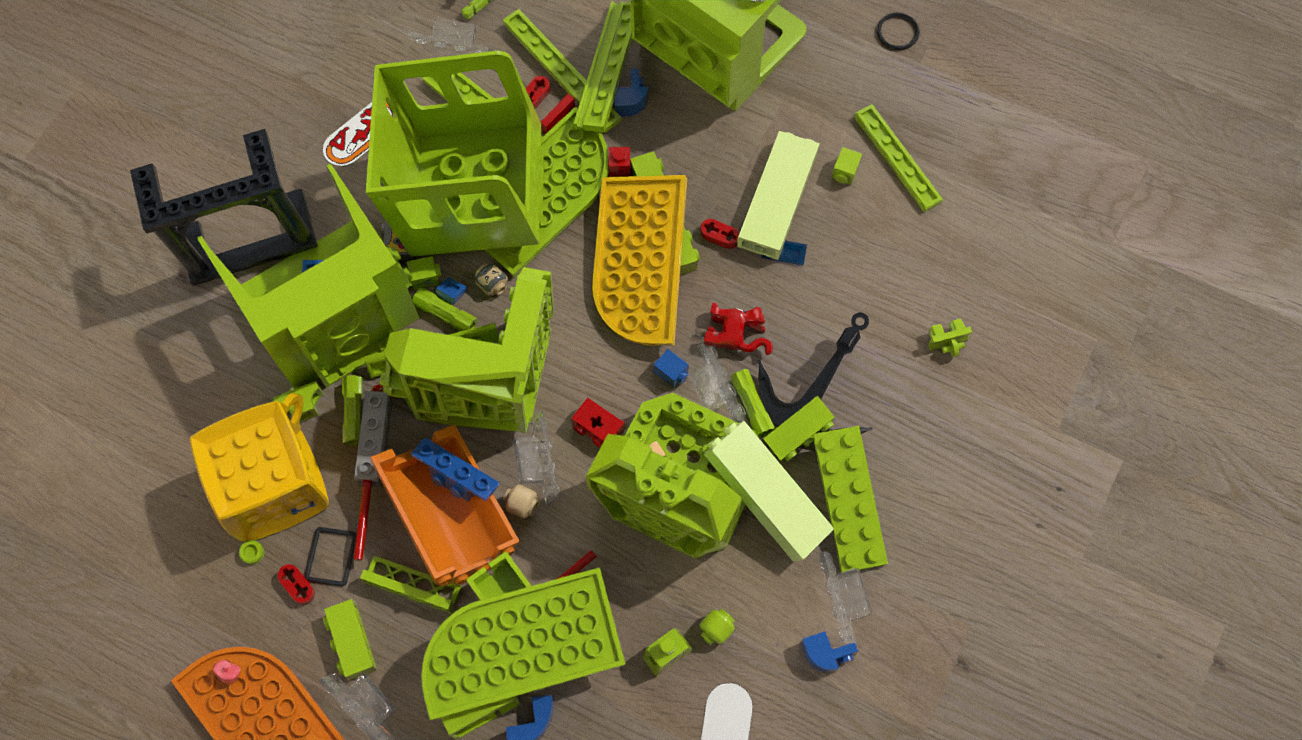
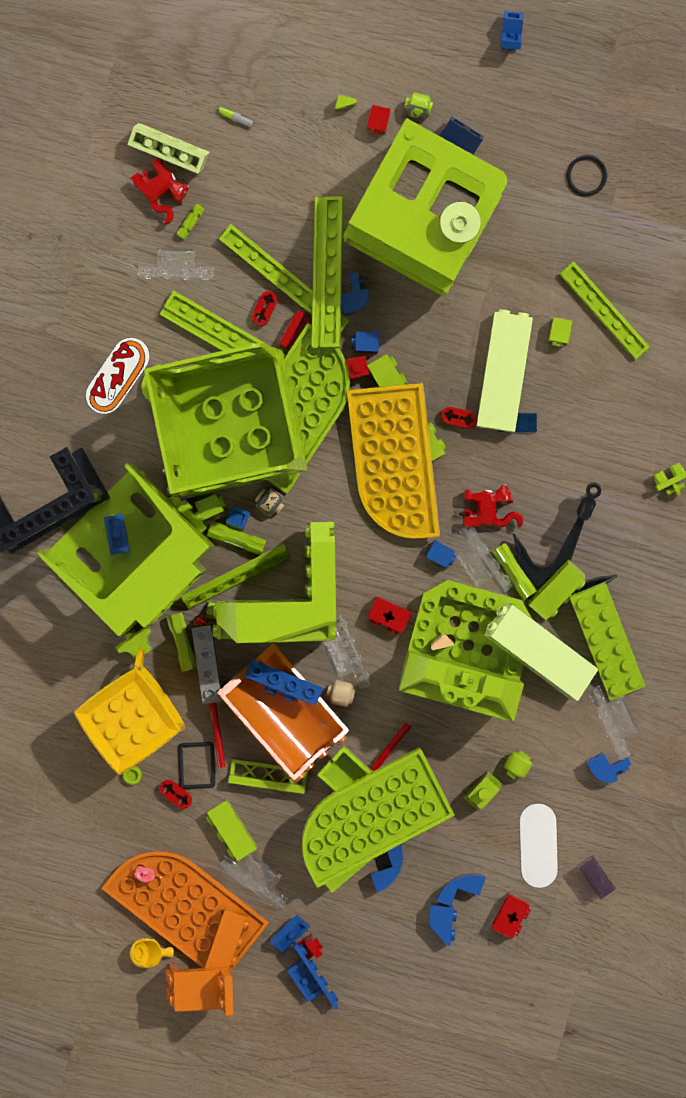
camera: 10 degrees left, 20 degrees up
(635, 138) = (366, 342): none -> blue brick

